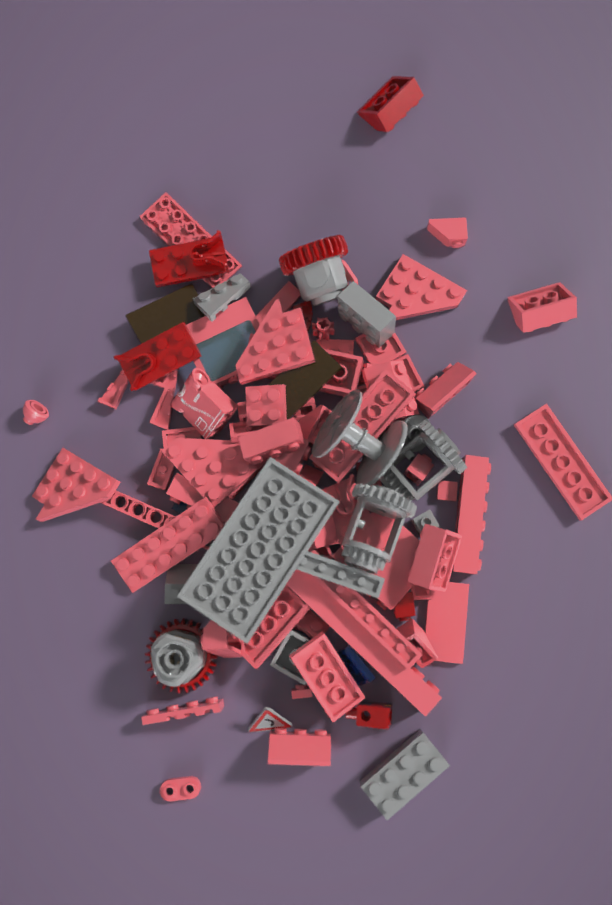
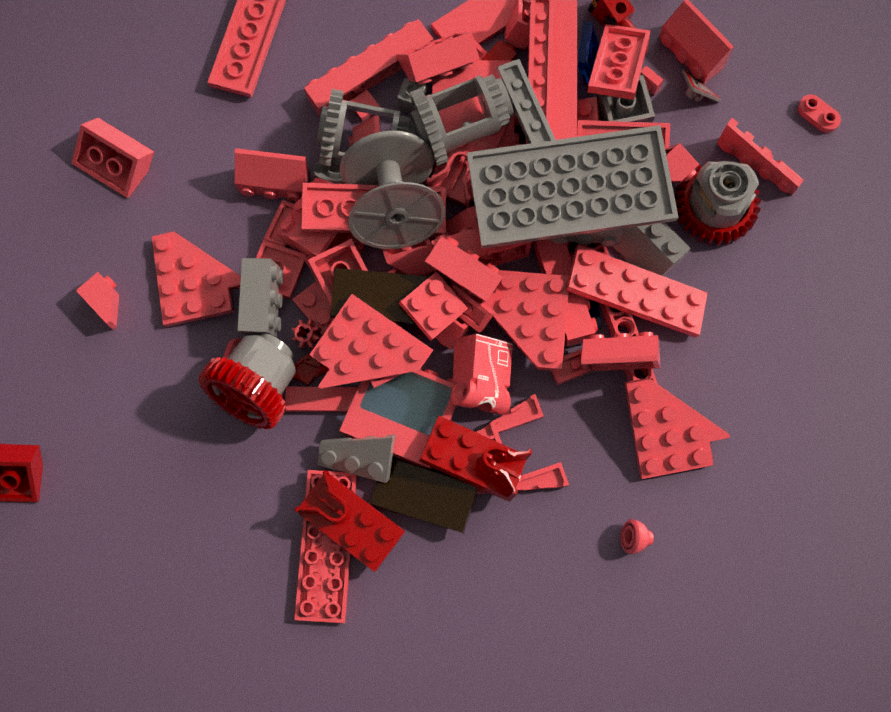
camera: 135 degrees left, 5 degrees down
(137, 493) = (621, 352): none -> coral slope
(189, 432) = (529, 376): coral plate -> none

